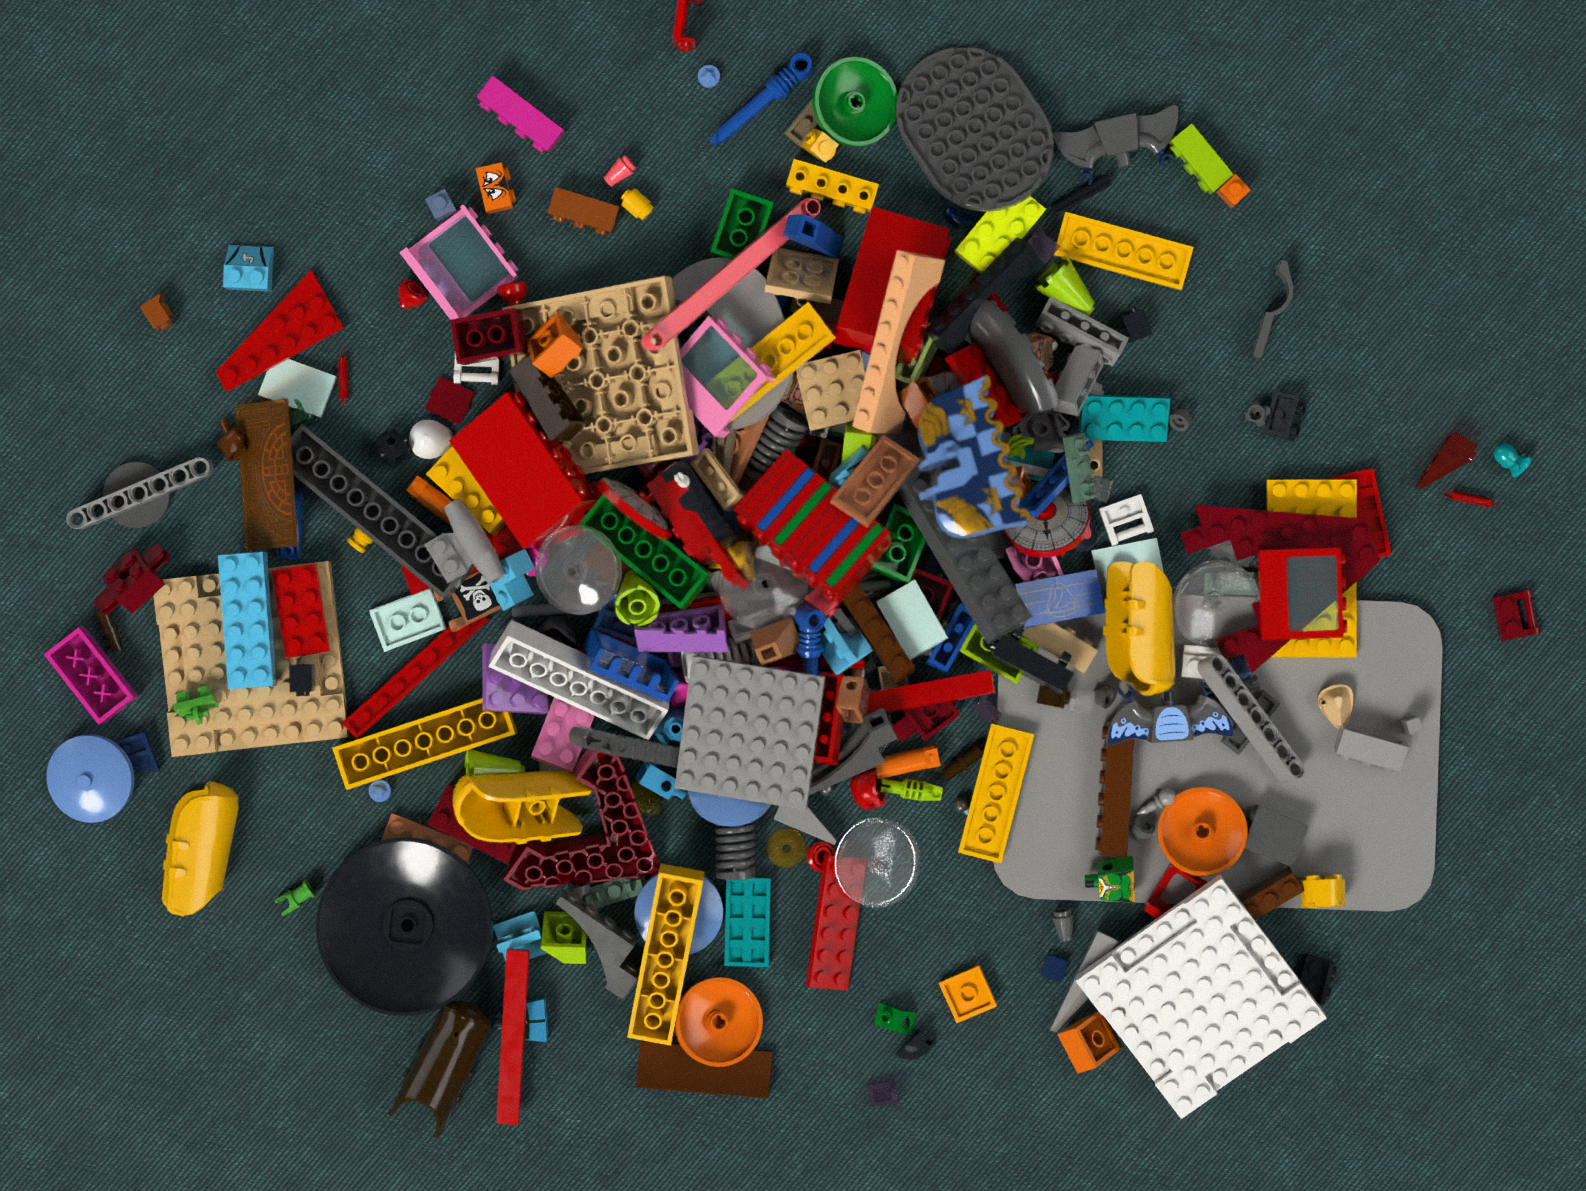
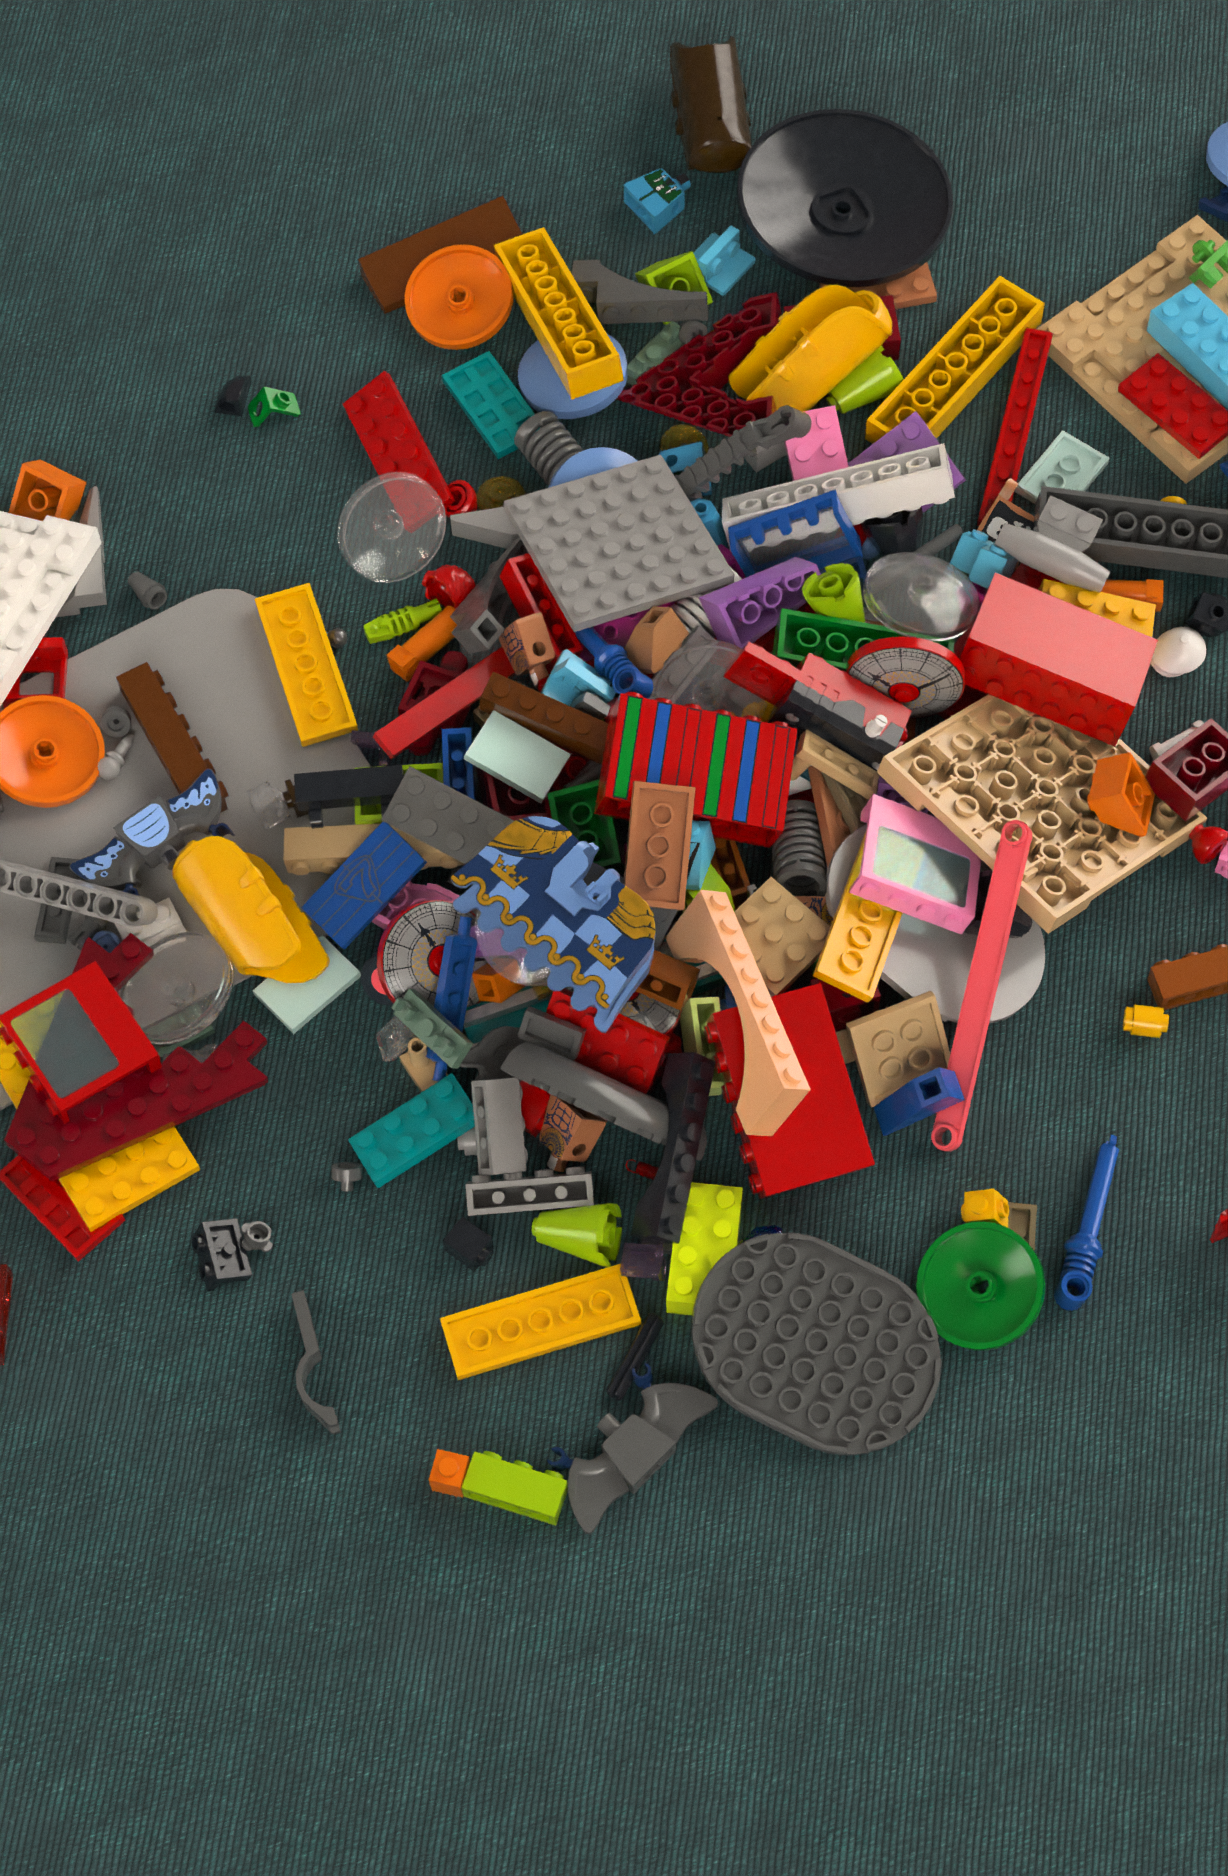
camera: 155 degrees right, 25 degrees down
(198, 847) = (1103, 147): yellow animal -> none
(297, 896) = (972, 173): bright green piece -> none
(302, 679) = (1126, 343): black brick -> none
(380, 790) = (960, 306): medium blue tile -> none
(449, 400) = (1186, 703): dark red piece -> none
(513, 1036) = (662, 168): red tile -> none
(548, 401) = (1077, 732): dark brown wedge -> none
(620, 170) = (1191, 1049): coral cone -> none
(708, 76) = (1171, 1215): medium blue tile -> none
(741, 223) = (1010, 1068): green brick -> none
(831, 185) = (937, 1178): yellow brick -> none
(883, 1093) = (240, 337): clear purple tile -> none
(962, 762) = (364, 677): dark brown pin -> none
(968, 993) = (209, 470): light orange plate -> none
(1013, 409) = (551, 1033): none -> dark grey tile
(1017, 444) = (518, 1013): lime piece -> none
(1054, 968) = (130, 546): dark blue tile -> none
(1104, 696) = (246, 826): dark grey tile -> none
(1114, 880) = (116, 649): green torso -> none
(1124, 512) = (348, 1033): white plate -> none

